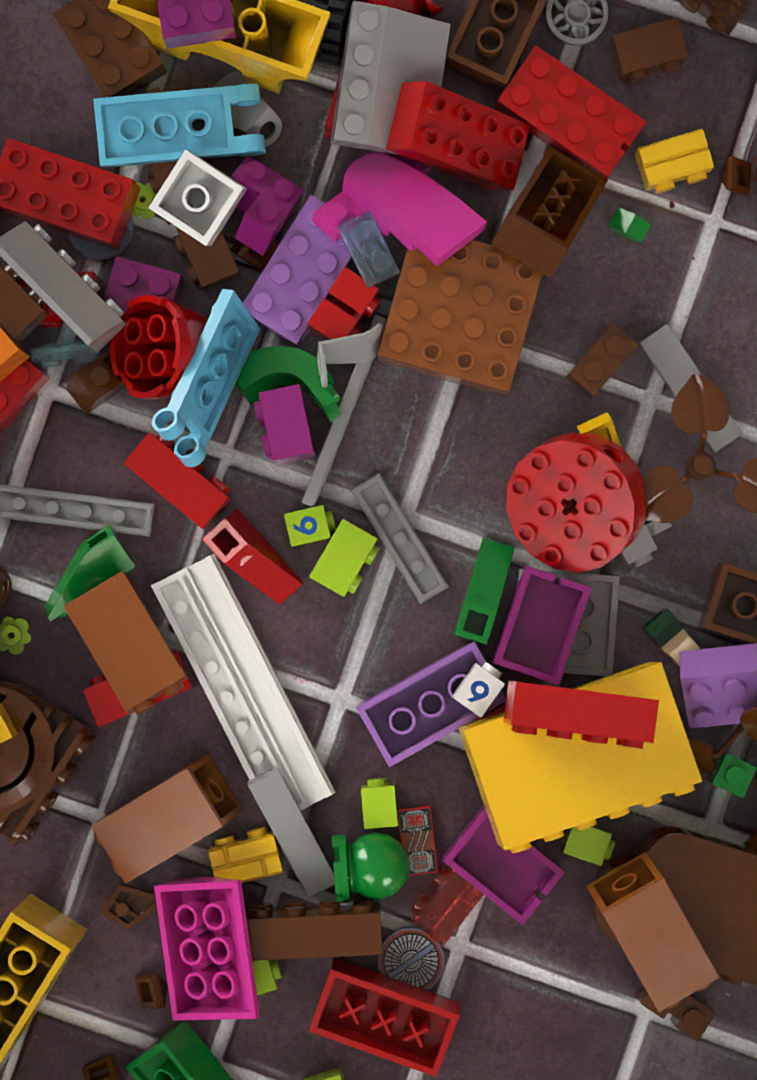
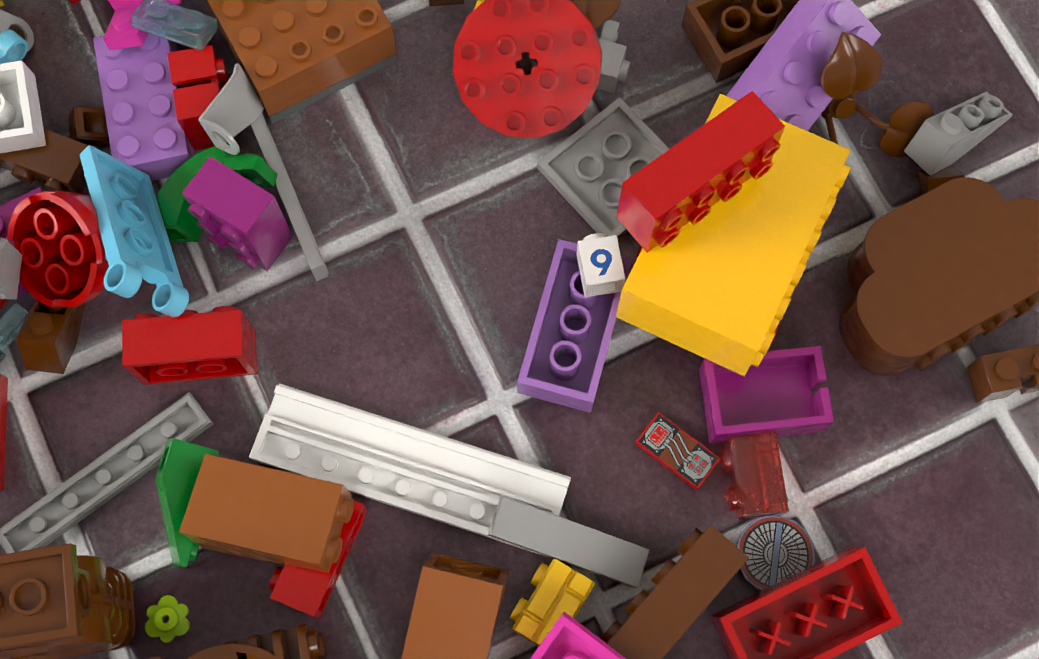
camera: 50 degrees left, 15 degrees down
(252, 557) = (314, 353): red slope -> none
(266, 204) = (65, 79): magenta brick -> none
(309, 525) = (336, 287): lime brick -> none
(344, 558) = (390, 286): lime brick -> none
(371, 866) = (661, 504): green tile -> none
(379, 804) = (616, 449): lime brick -> none
(399, 538) = (421, 233): light grey tile -> none
(484, 591) = (529, 207): green slope -> none
(541, 625) = (590, 169): magenta piece -> none
(588, 844) = (811, 316): lime brick -> none
(653, 932) = (942, 307): dark orange slope -> none
(669, 635) = (695, 103): leg -> none
(732, 775) = (866, 156): green brick -> none

